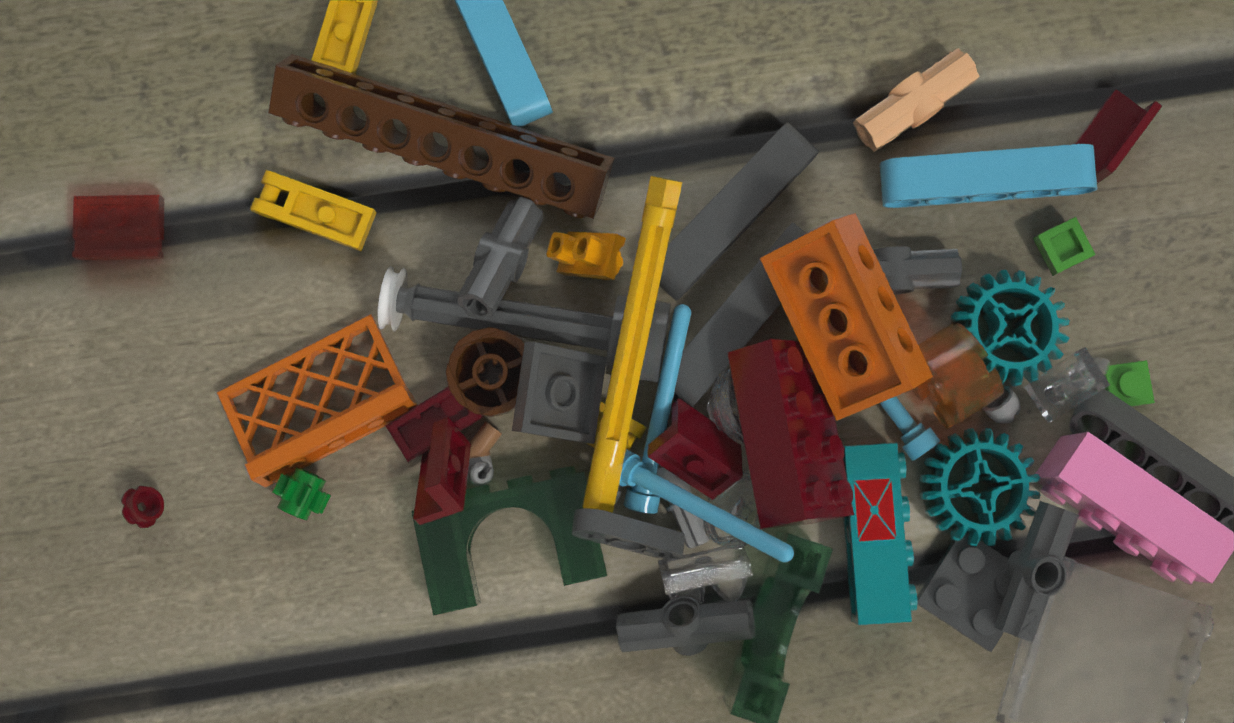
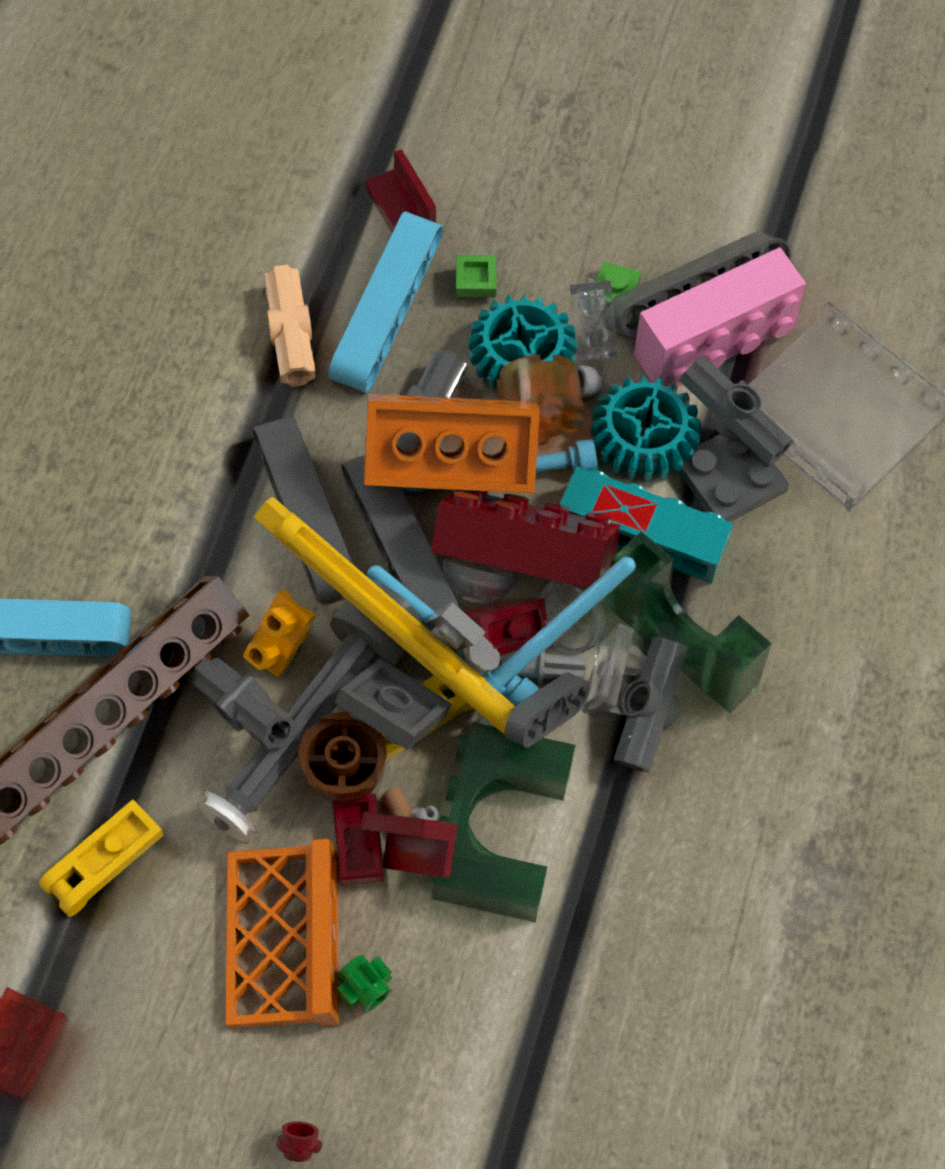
camera: 70 degrees left, 20 degrees down
(645, 424) = (463, 634): none -> light grey hinge

